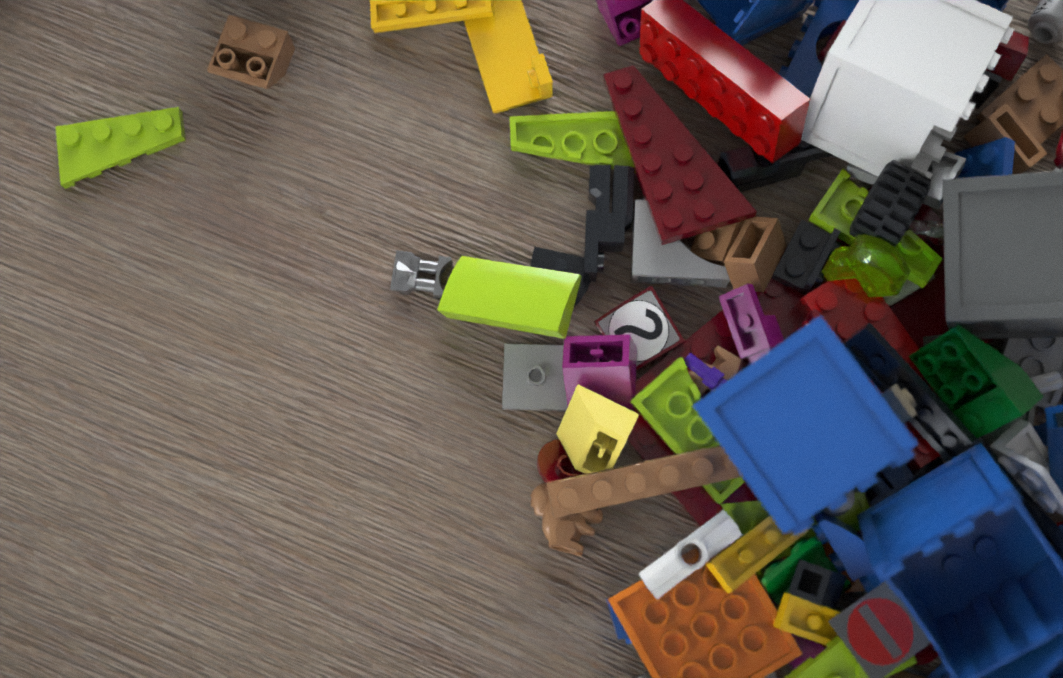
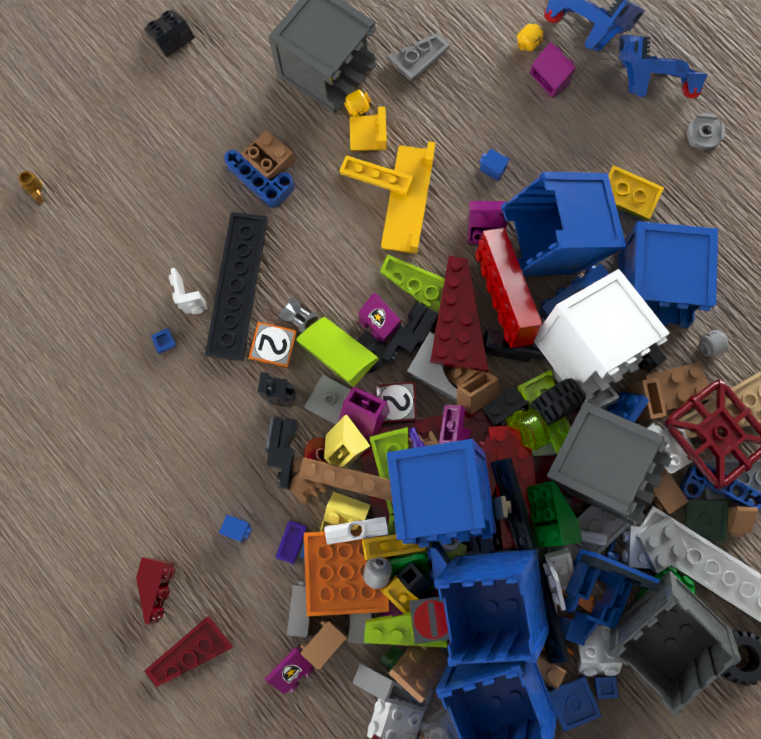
camera: 25 degrees right, 0 degrees up
(100, 144) = (169, 166): lime wing -> none
(230, 413) = (163, 340): none -> blue plate
(243, 334) = (190, 302): none -> white bracket
(248, 95) = (255, 177): none -> blue beam
(303, 276) = (236, 286): none -> black plate
(403, 336) = (272, 344): none -> slope
(450, 400) = (274, 390): none -> black plate
(494, 647) = (235, 528): none -> blue brick
(510, 499) = (278, 448): none -> black plate
(549, 216) = (379, 319): none -> magenta slope
(590, 624) = (291, 542): none -> dark purple tile
(647, 536) = (344, 510): none -> light yellow slope
(758, 603) = (377, 573): none -> light grey head
(1011, 56) = (675, 350): dark red brick -> none

